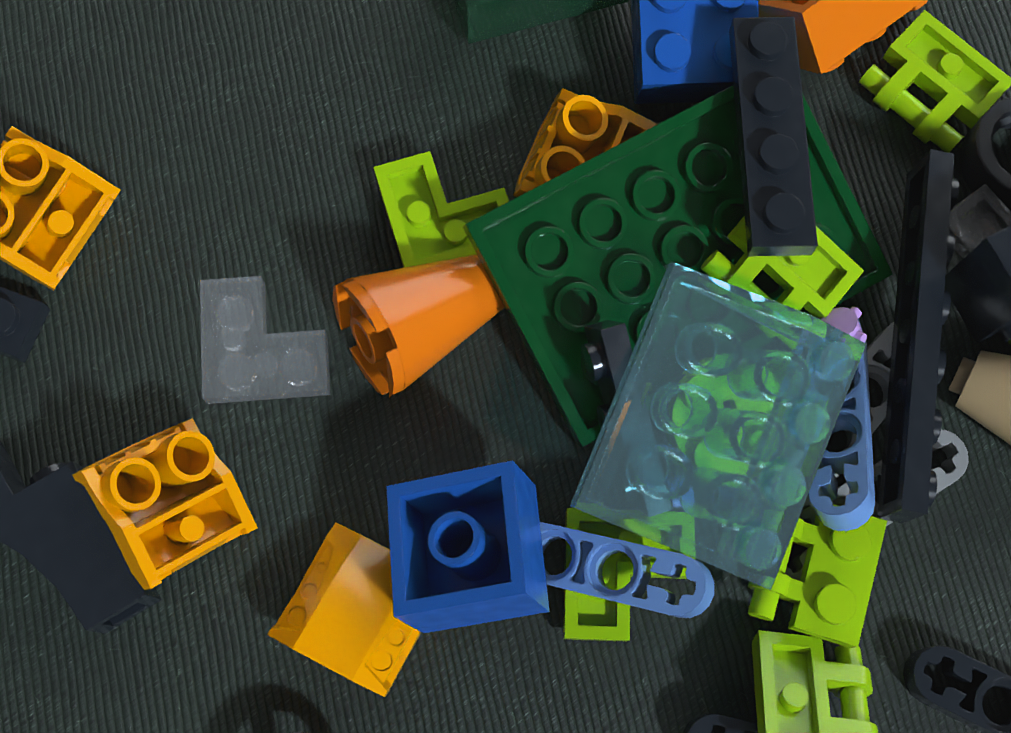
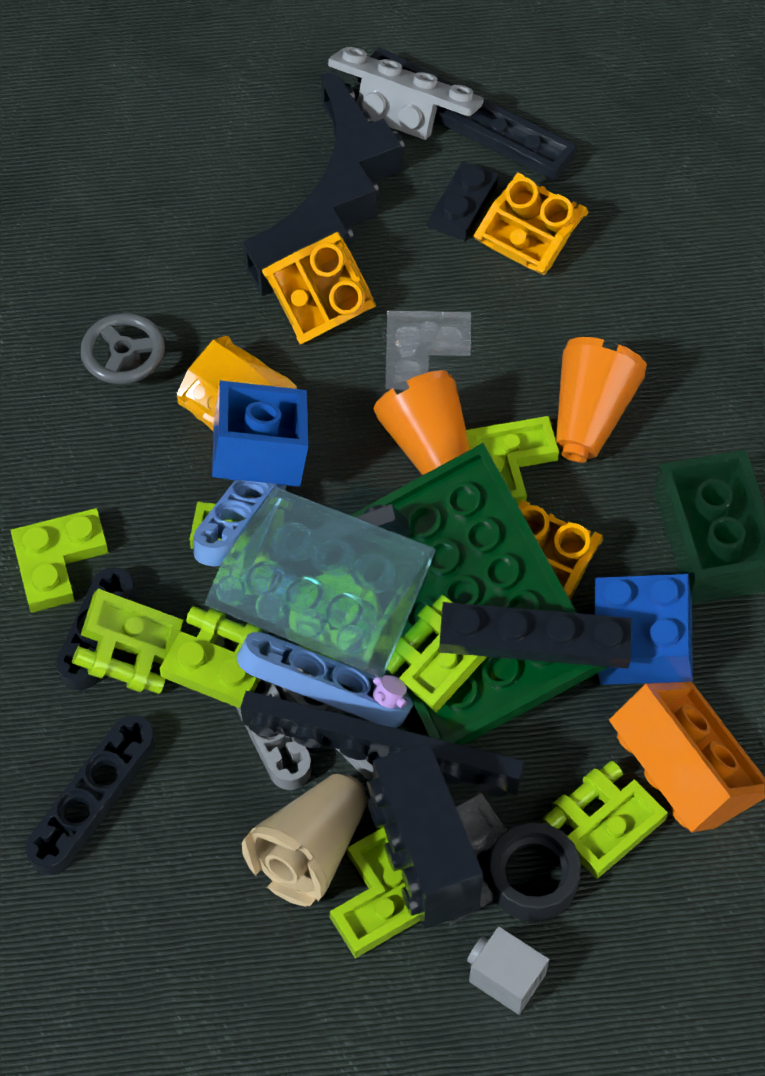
camera: 100 degrees right, 15 degrees down
(346, 107) = (594, 394): none -> orange cone

